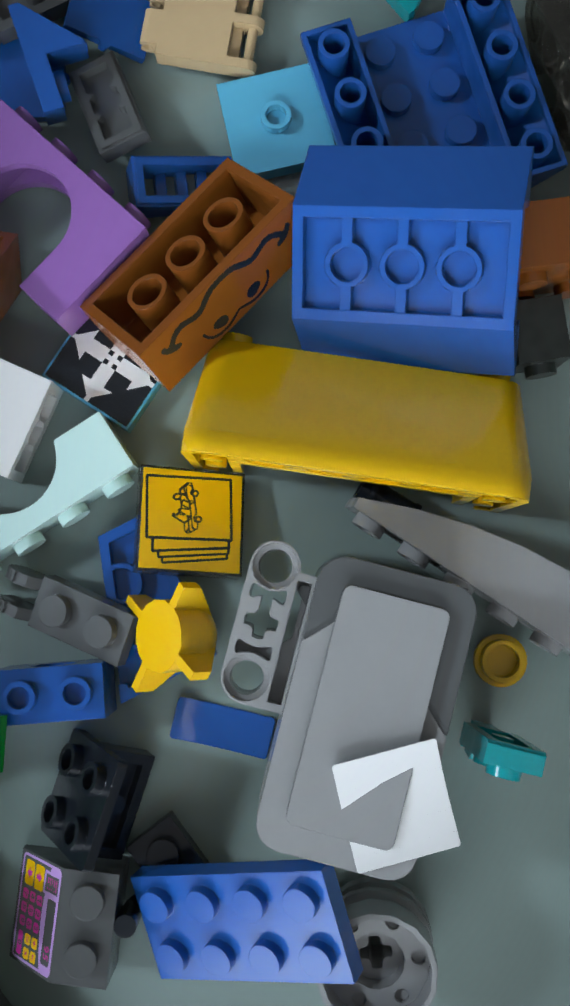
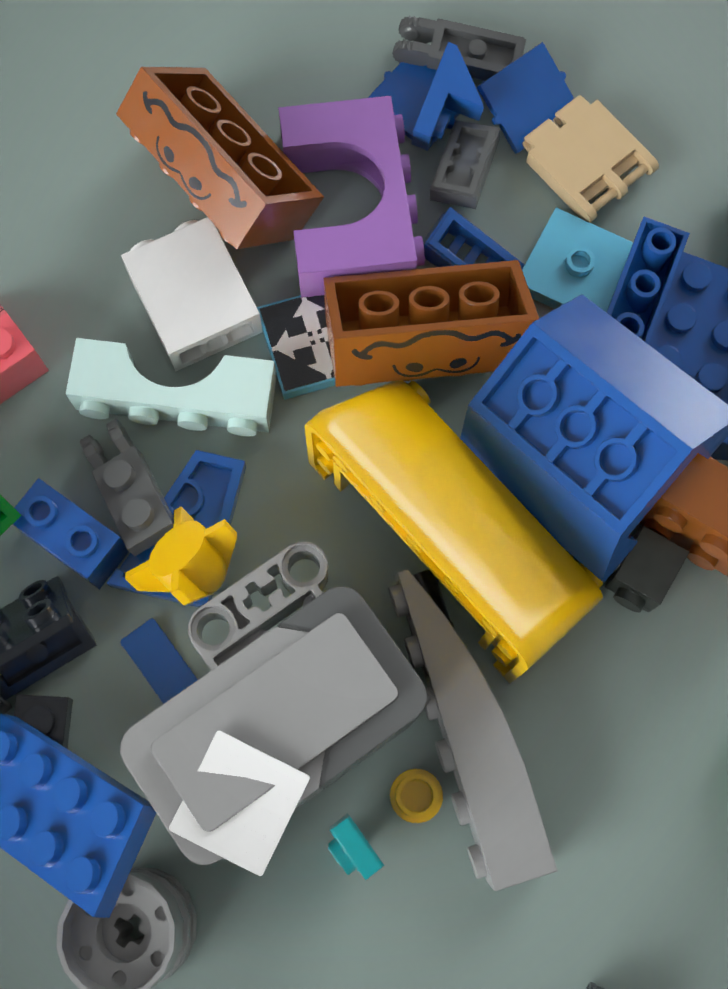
camera: 35 degrees right, 10 degrees down
(189, 522) = (270, 493): yellow tile -> none

